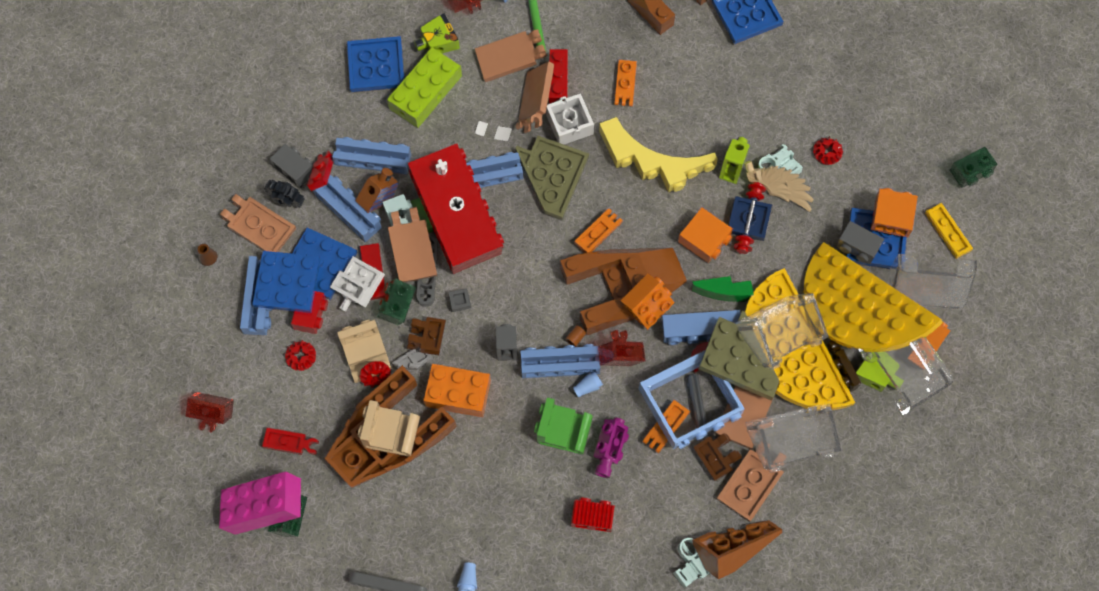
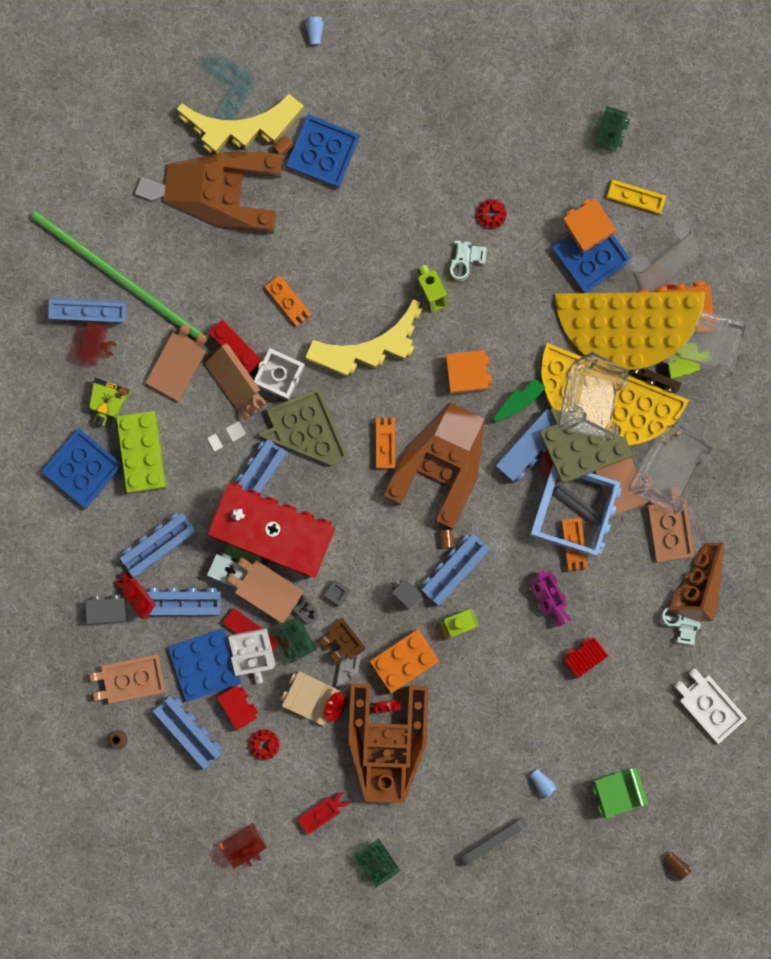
camera: 50 degrees left, 15 degrees up
(260, 503) = (354, 875): dark pink brick -> none
(284, 194) = (128, 639): black gear -> none
(286, 281) = (202, 703): blue plate -> none
(377, 190) = (196, 564): dark orange torso -> none
(388, 430) = (393, 738): tan piece -> none
(410, 407) = (385, 706): none -> red gear
(524, 401) = (459, 624): none -> lime torso
(562, 427) = (505, 615): bright green piece -> none
(588, 384) = (491, 566): light blue cone -> none
(621, 352) = (494, 521): clear red brick -> none
(648, 300) = (477, 465): orange brick -> none
(713, 458) = (629, 536): reddish brown plate -> none
(750, 218) = (485, 326): dark blue plate -> none
(781, 183) = (483, 277): tan animal -> none
(860, 242) = (585, 273): dark grey brick -> none

